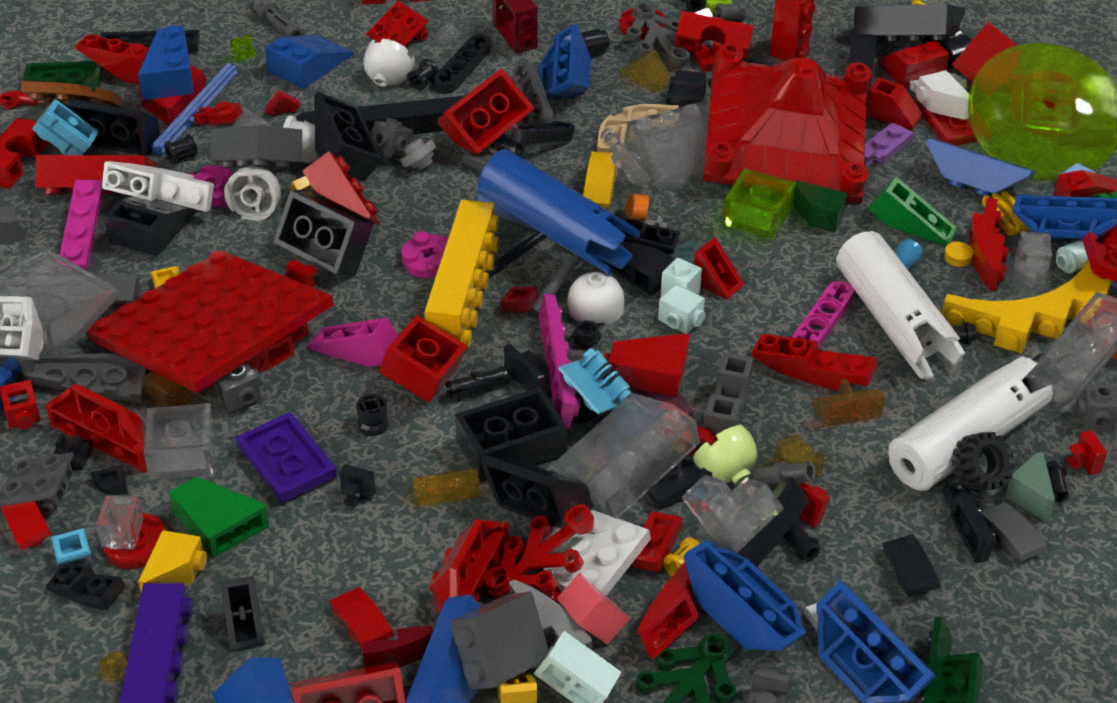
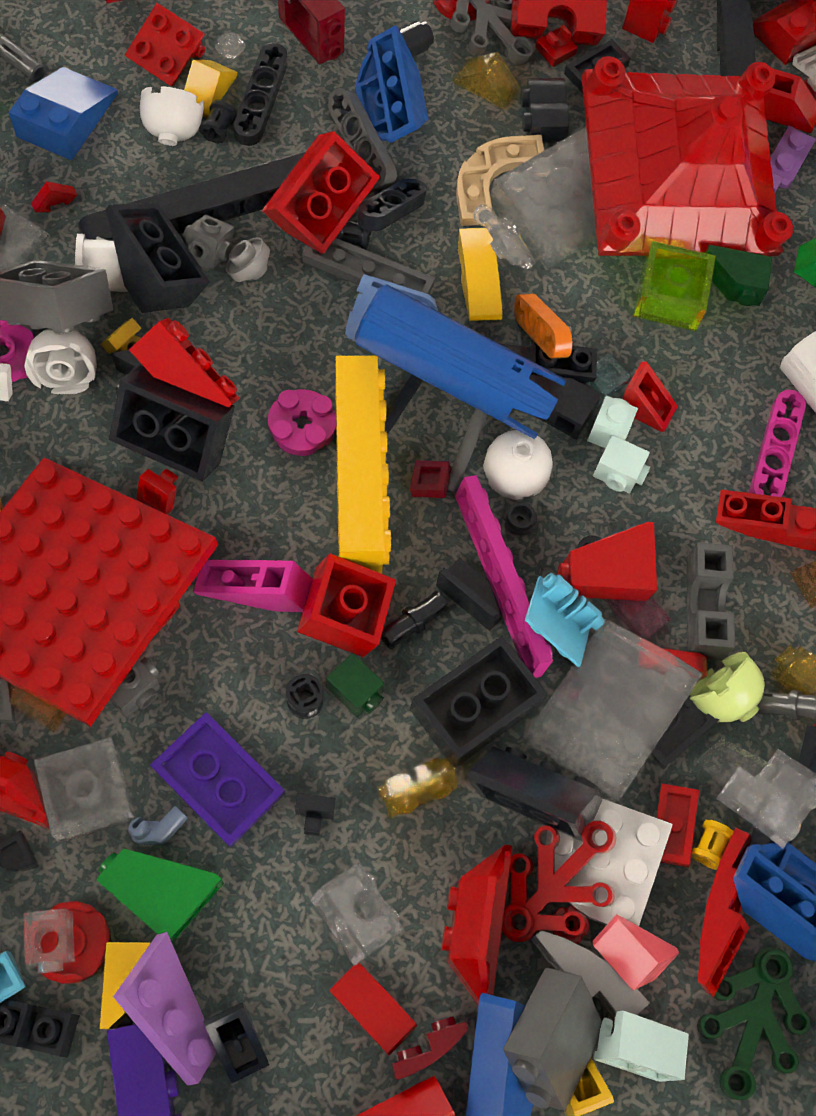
camera: 20 degrees left, 25 degrees up
(195, 578) = (166, 1010): none -> medium lavender wing
(233, 482) = (156, 831): none -> sand blue arm
(367, 551) = (355, 934): none -> clear brick
(415, 414) = (356, 686): none -> dark green brick
(424, 48) = (209, 82): none -> yellow slope

